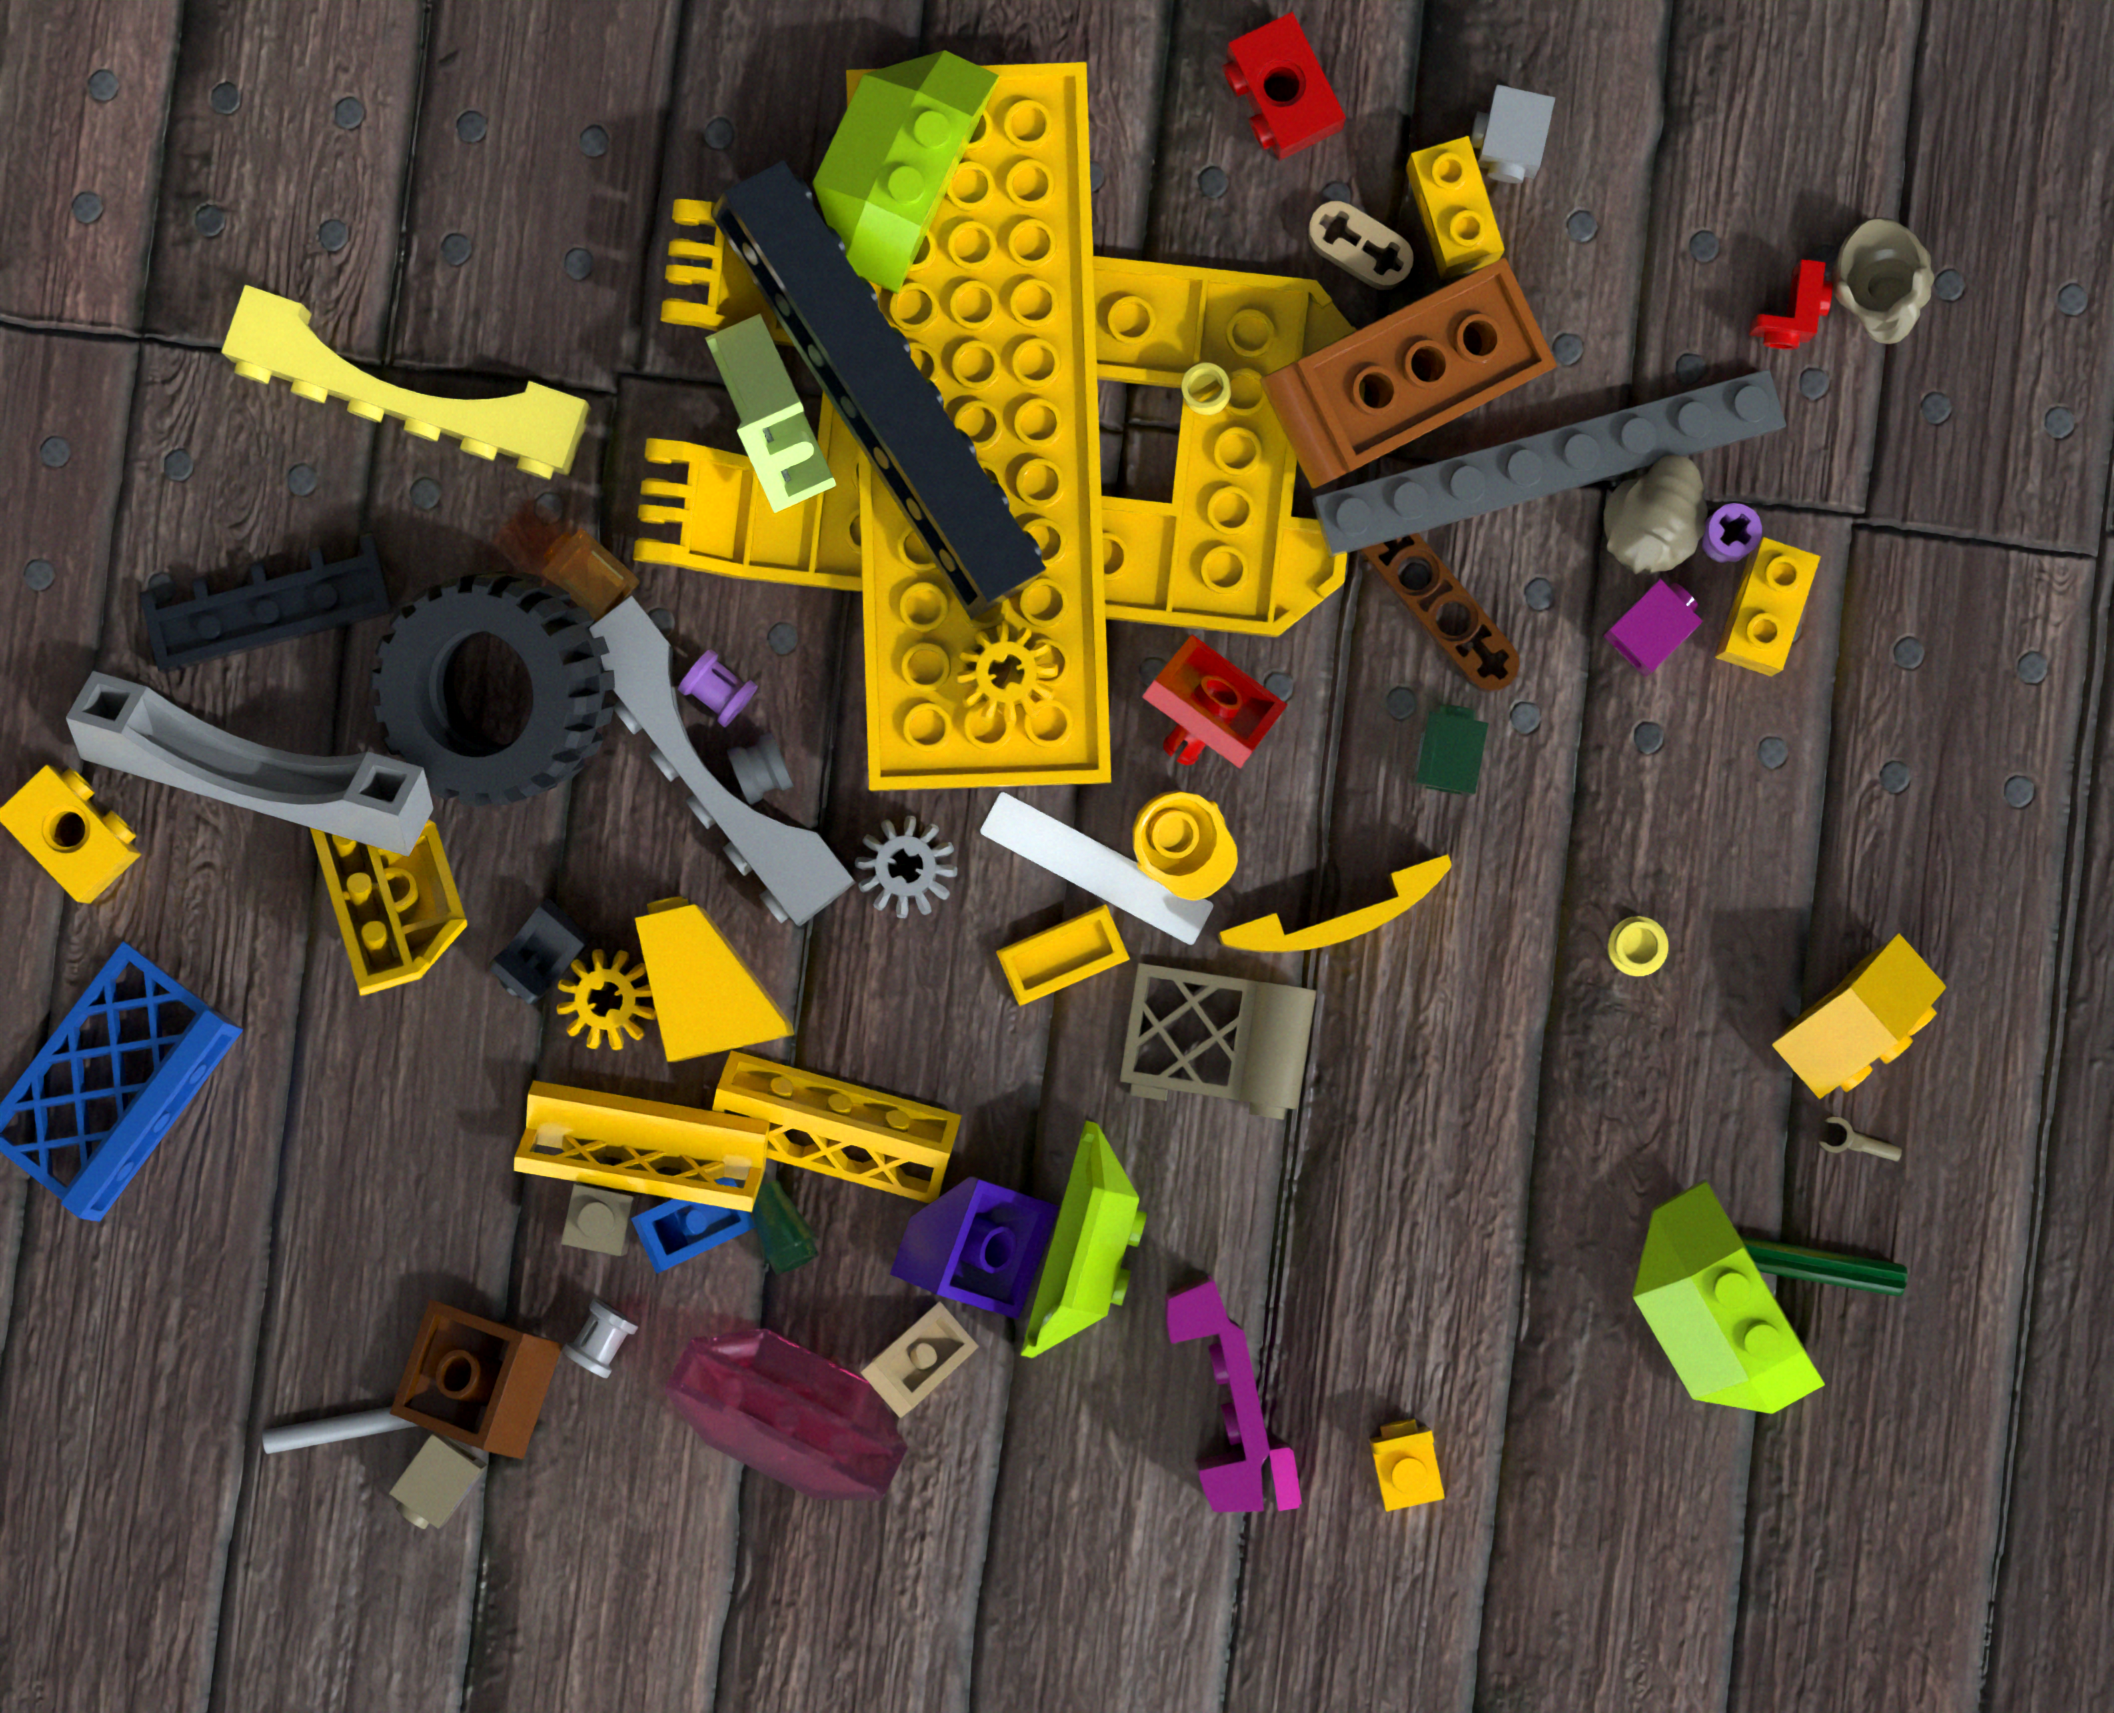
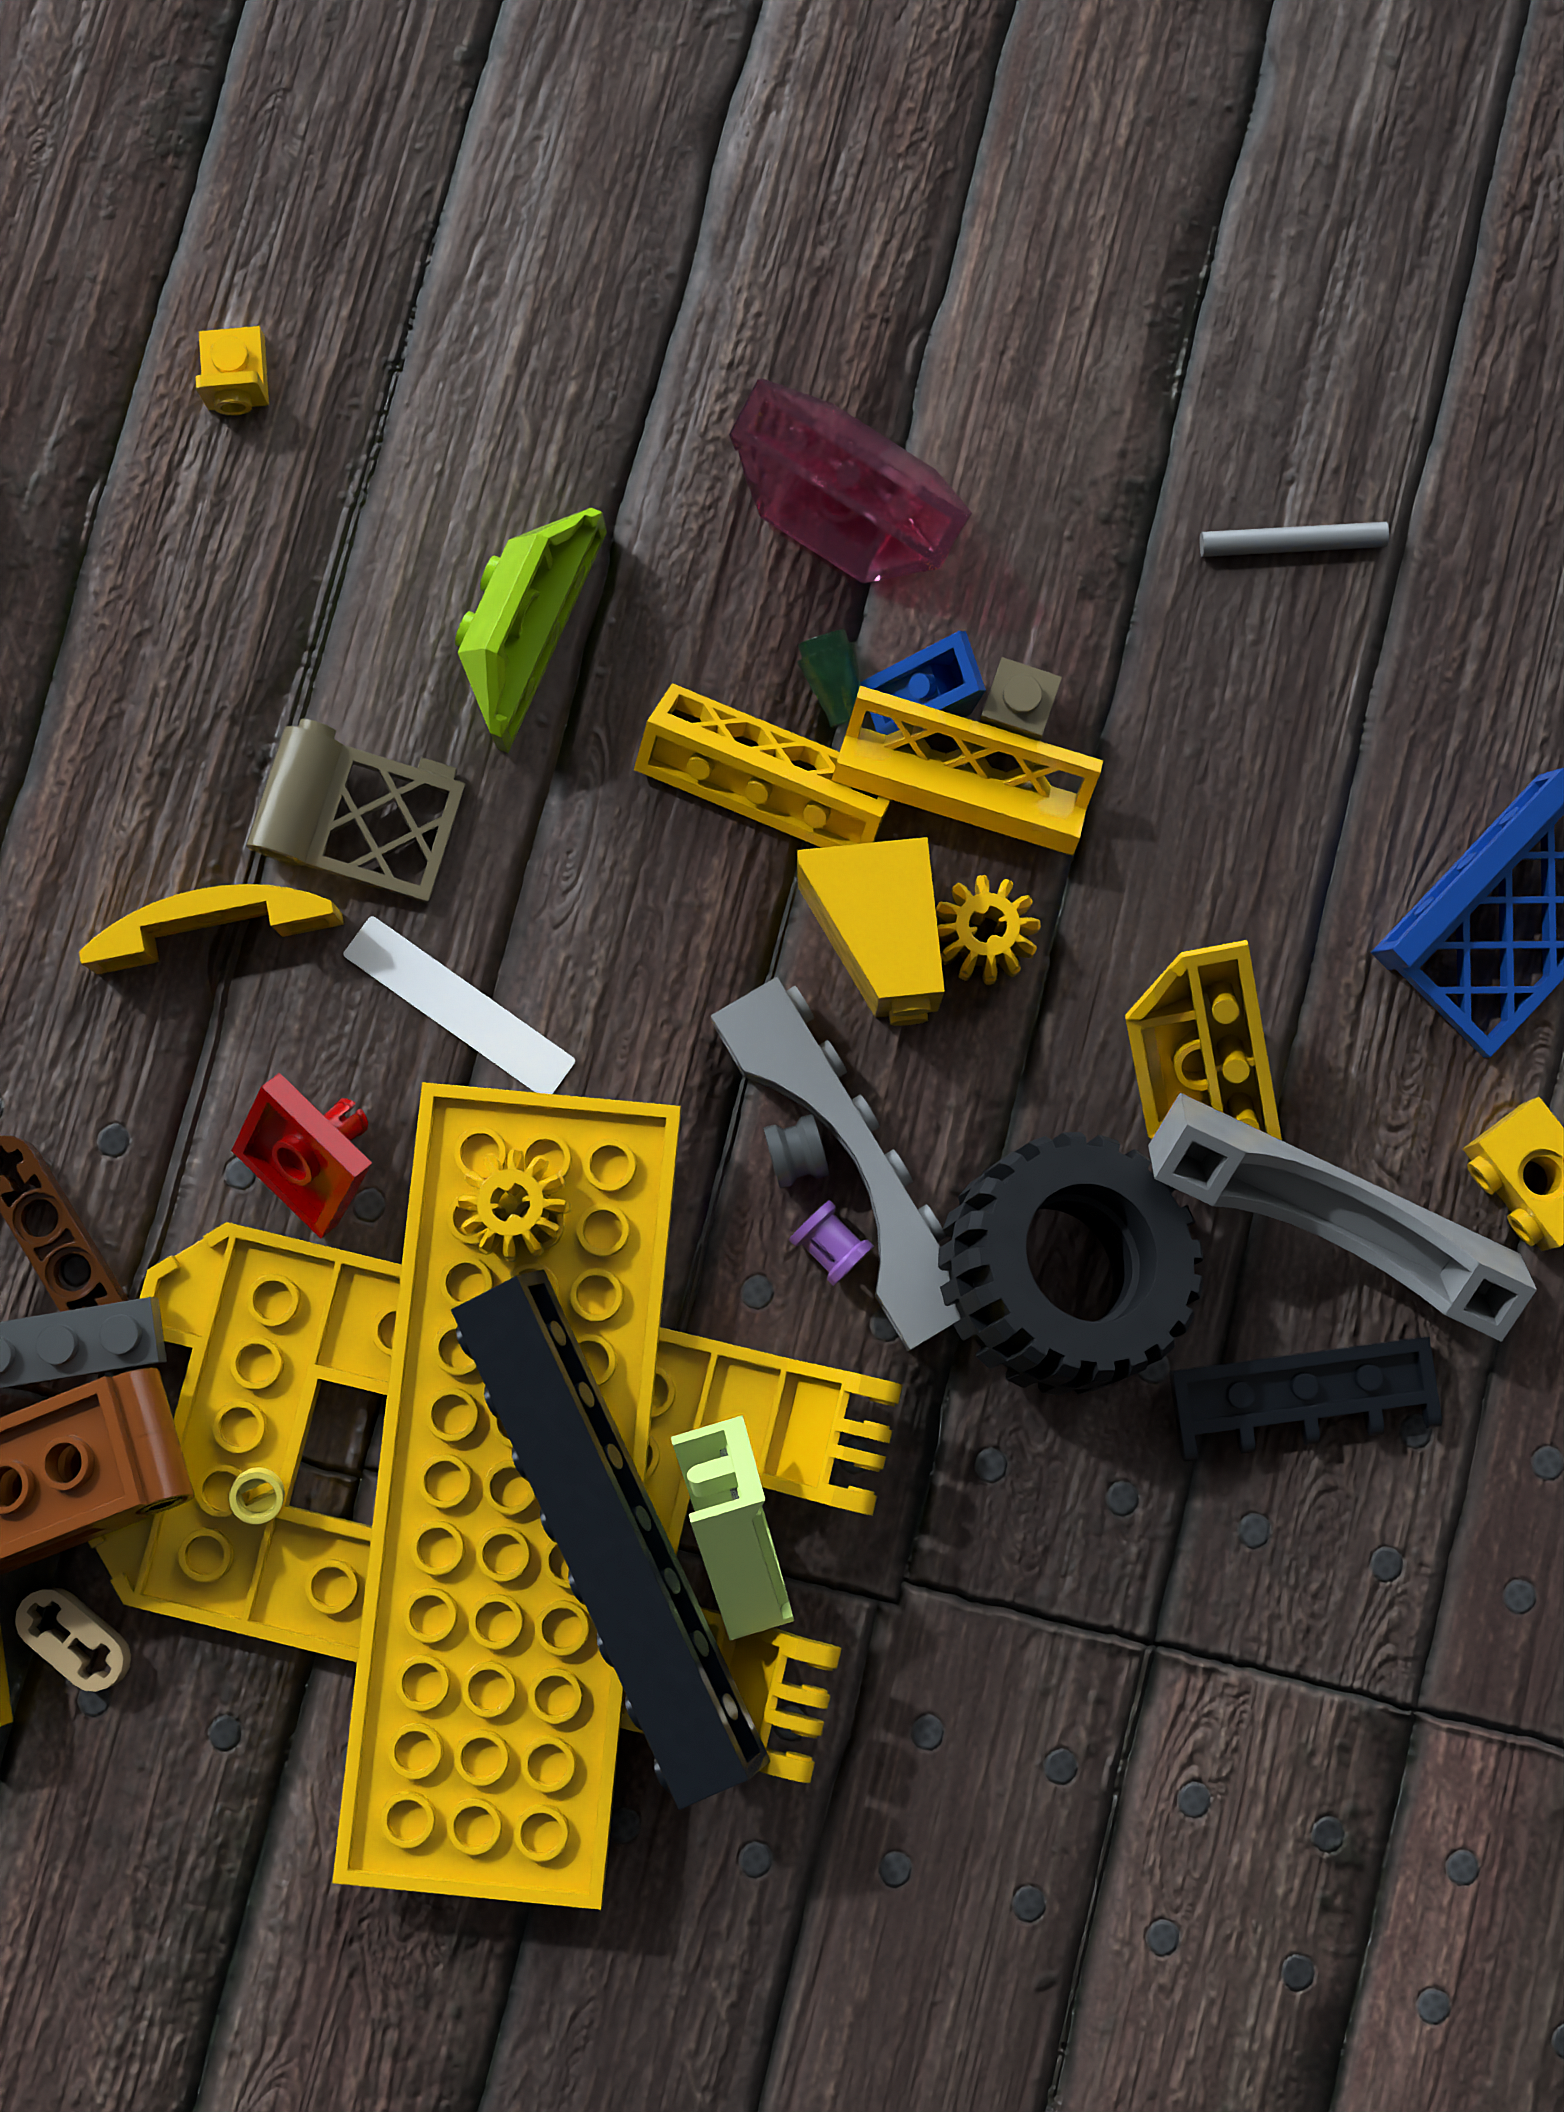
camera: 170 degrees left, 5 degrees down
(437, 1481) = (1214, 469): dark tan brick -> none
(476, 1379) = (1164, 560): reddish brown slope -> none
(535, 426) = (1266, 1686): light yellow arch -> none
(540, 953) = (1052, 985): black bracket -> none
(588, 573) = (955, 1382): clear orange brick -> none
(600, 1338) = (1032, 589): light grey bush -> none
(899, 159) = (552, 1798): lime wedge -> none
(914, 848) = (669, 1010): light grey gear -> none
(919, 1359) = (709, 525): tan slope -> none
(977, 1246) = (637, 628): dark purple slope -> none
(1062, 955) = (506, 920): yellow tile -> none
(1184, 844) = (359, 1013): yellow hat -> none
(1233, 1478) = (392, 377): magenta plate -> none
(1284, 52) = (112, 1865): red brick -> none
(1284, 1476) = (356, 369): dark pink tile -> none
(1450, 751) = (65, 1076): clear green brick -> none

